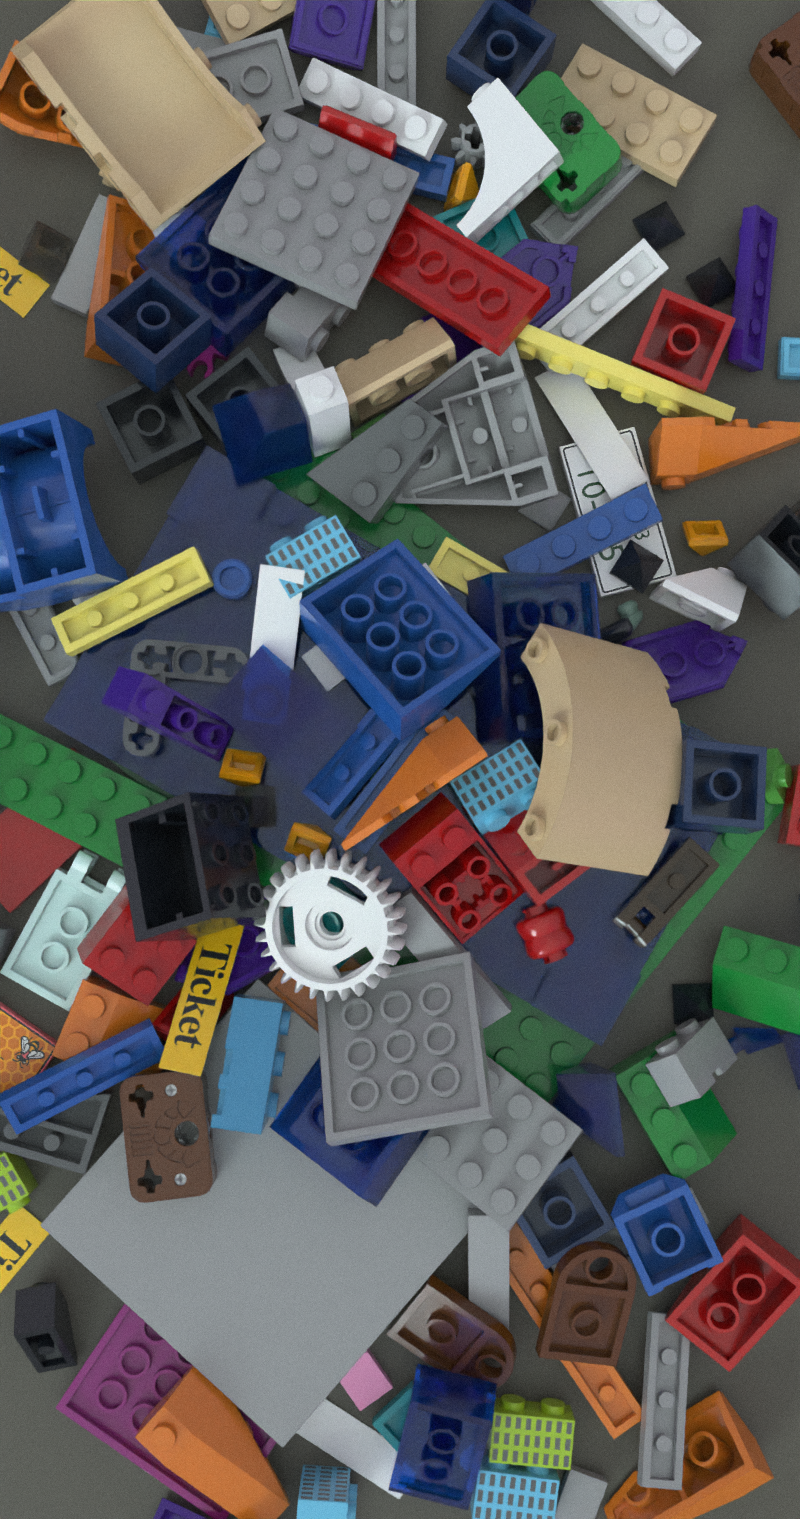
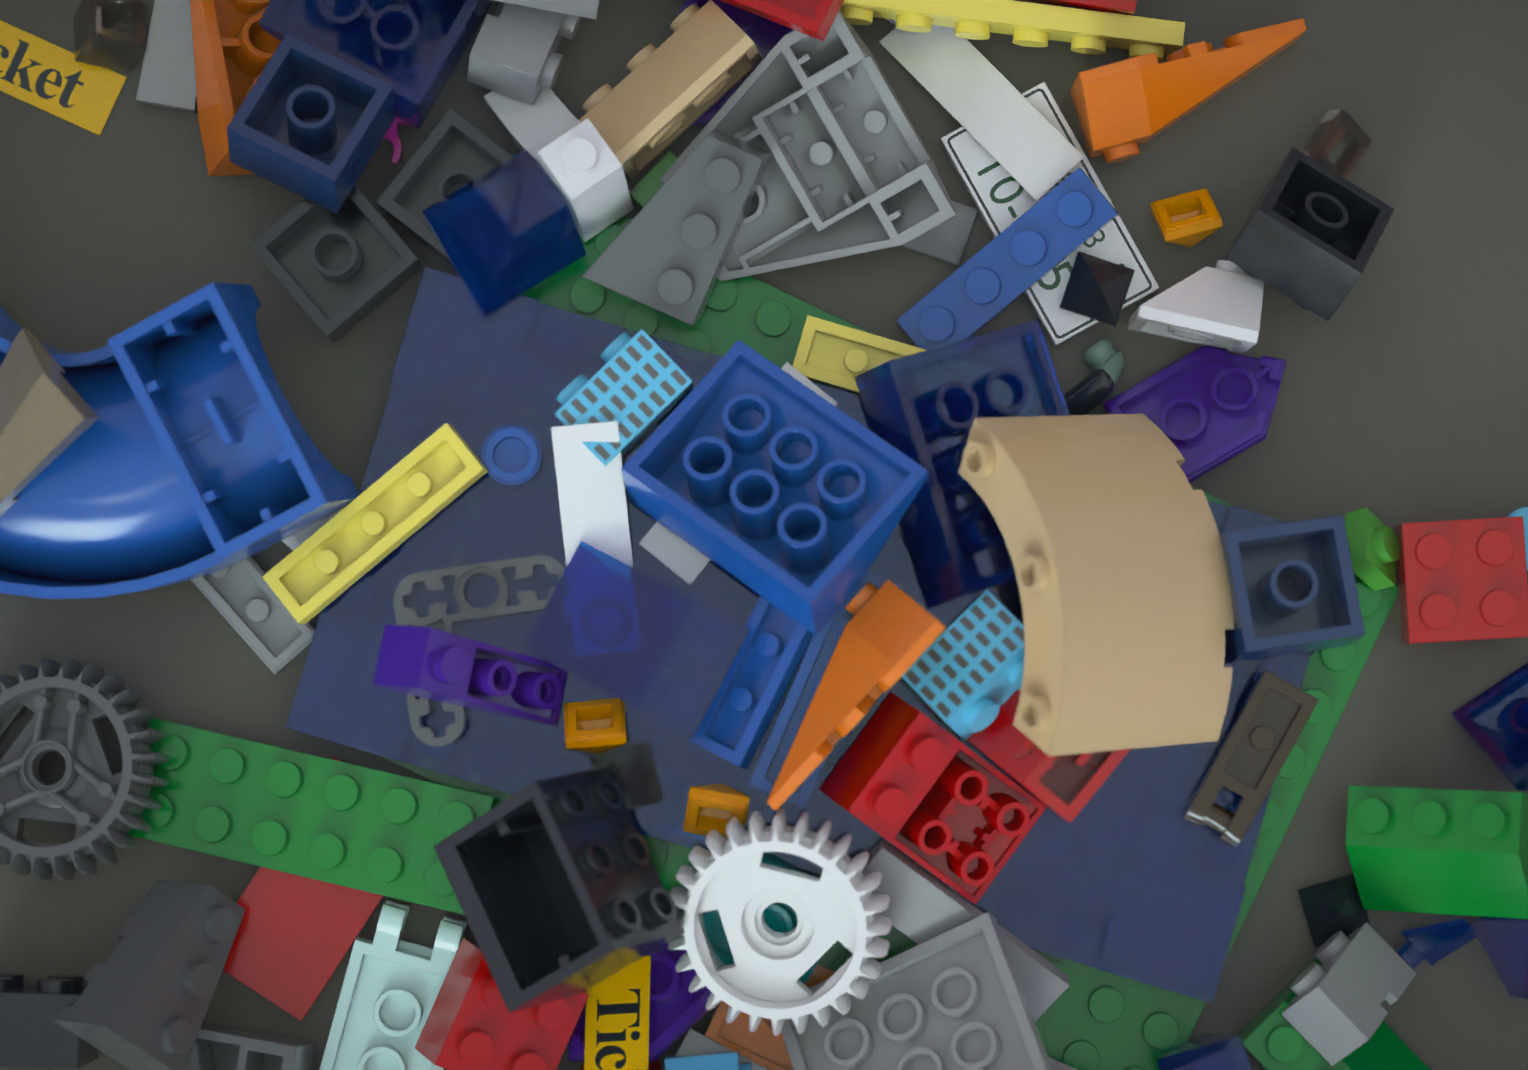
camera: 10 degrees left, 0 degrees up
(545, 933) = (1090, 858): red piece -> none

